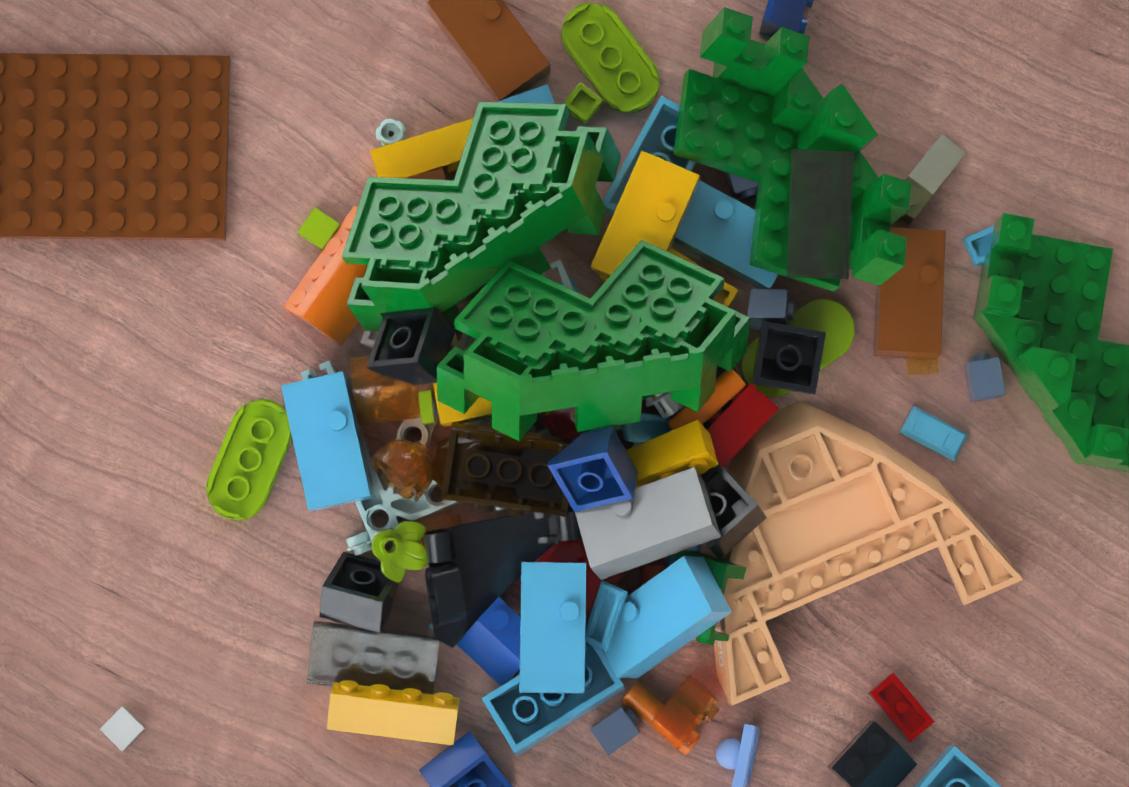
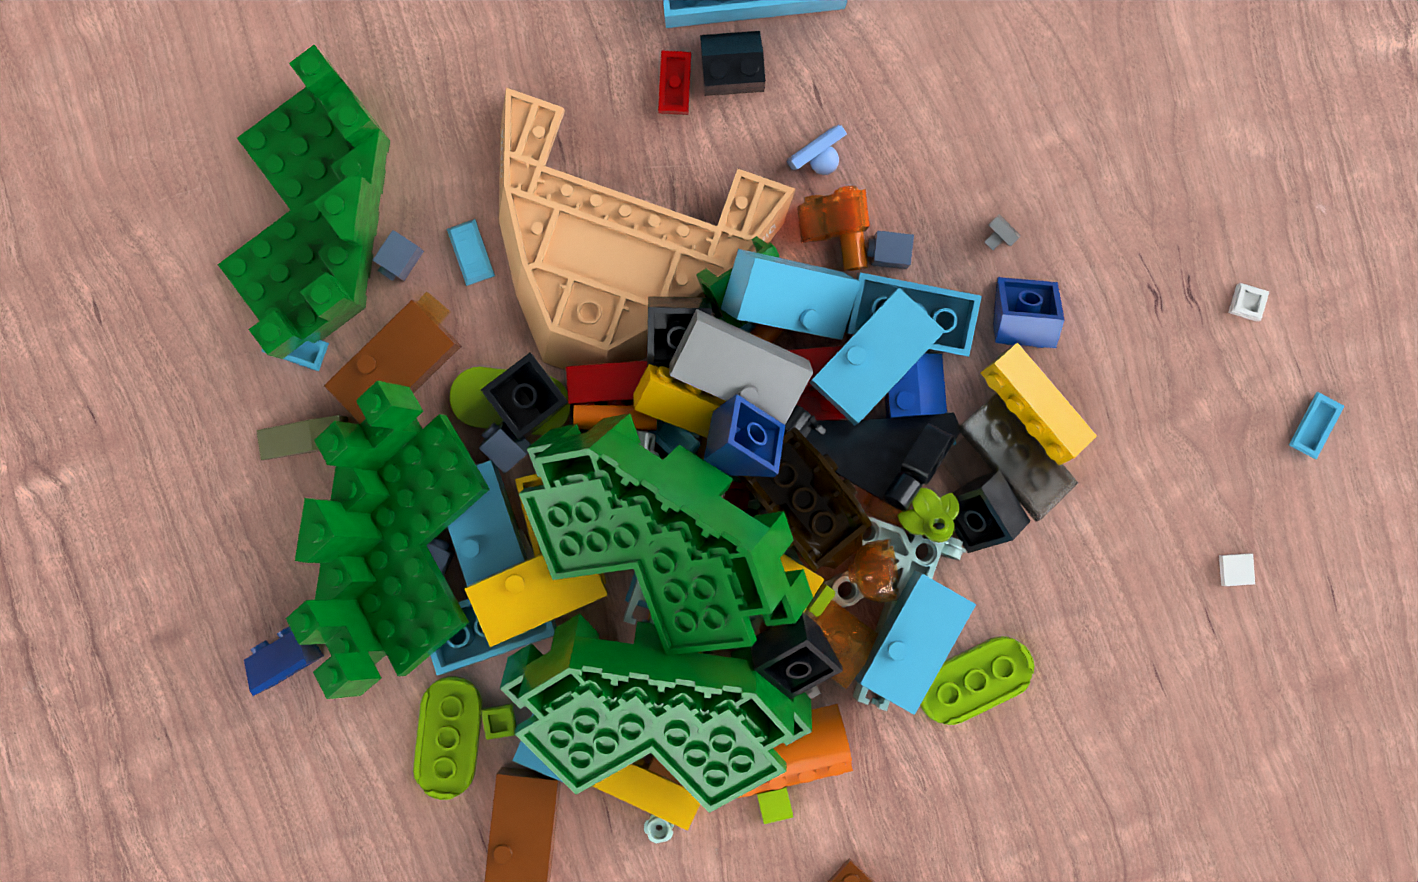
camera: 135 degrees left, 5 degrees up
(605, 615) = (829, 332): medium azure tile -> none
(820, 214) = (402, 478): clear smoke tile -> none

